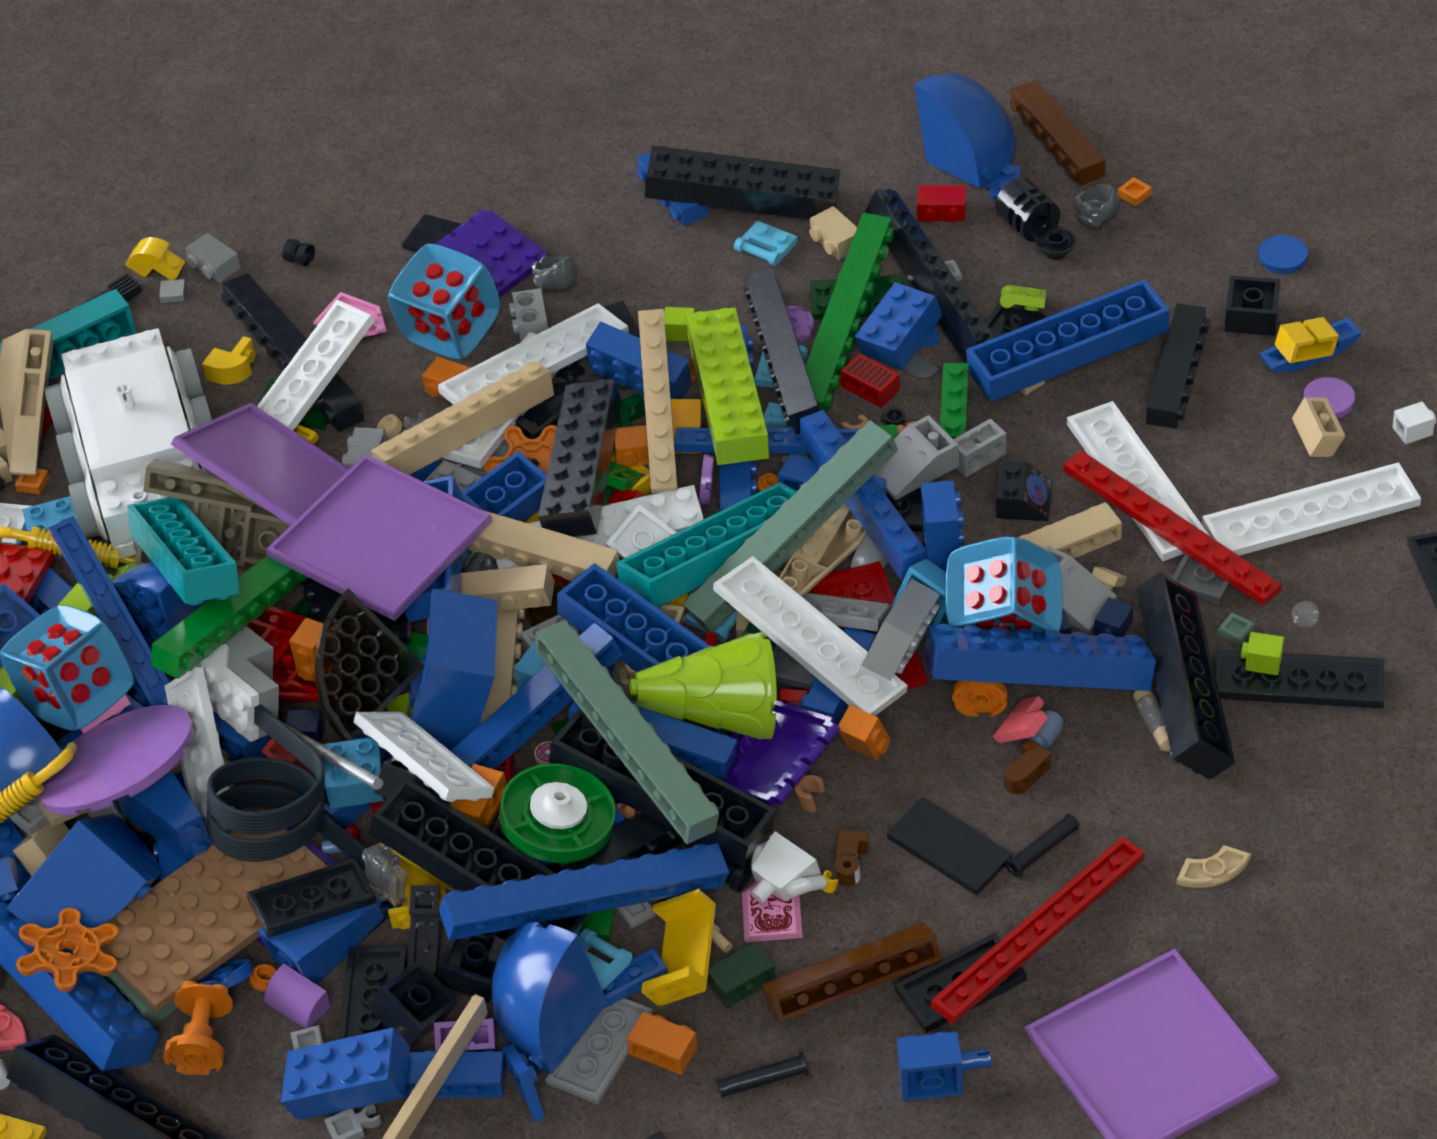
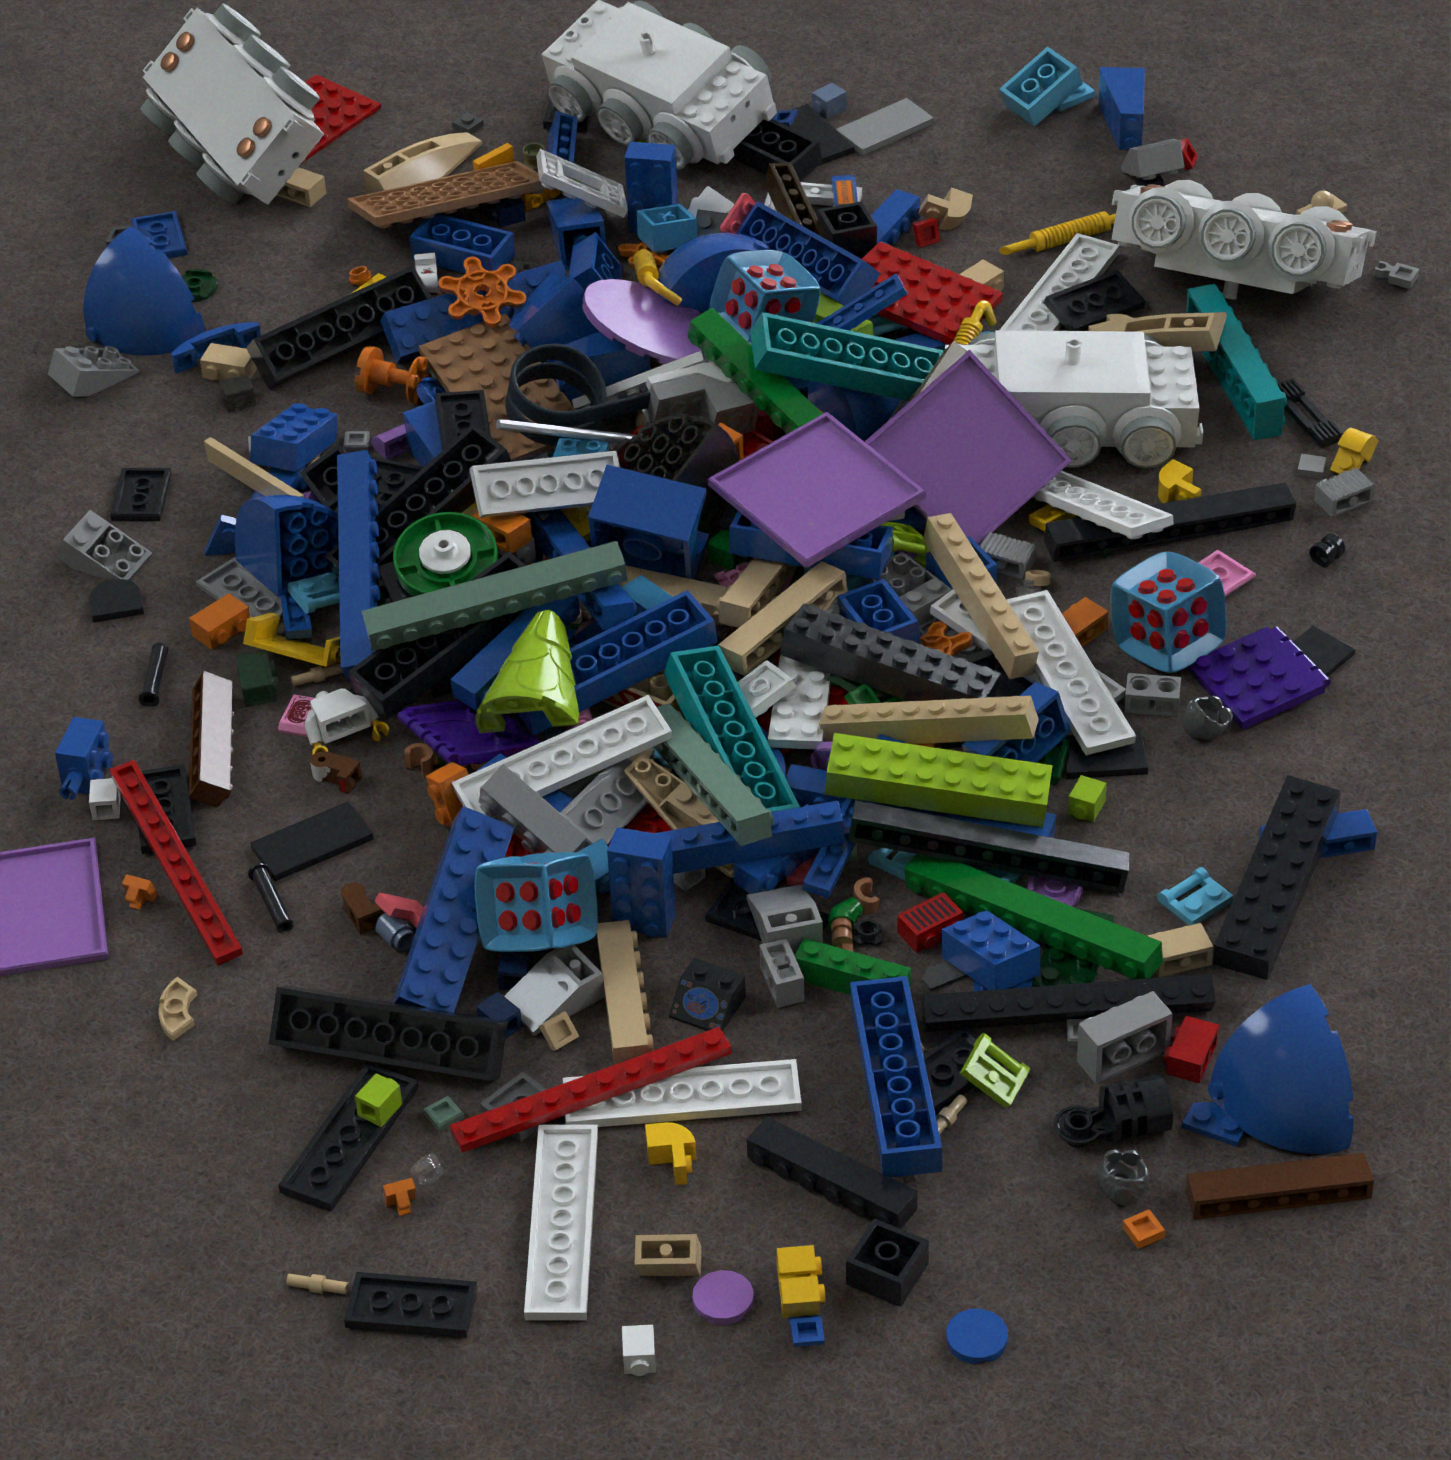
camera: 105 degrees right, 5 degrees down
(958, 230) = (1124, 1037): none -> light grey brick
(974, 1032) = (104, 799): none -> white brick
(1086, 952) = (138, 891): none -> orange tile
(1202, 464) = (673, 1145): none -> yellow brick
(1345, 618) = (400, 1194): none -> orange tile

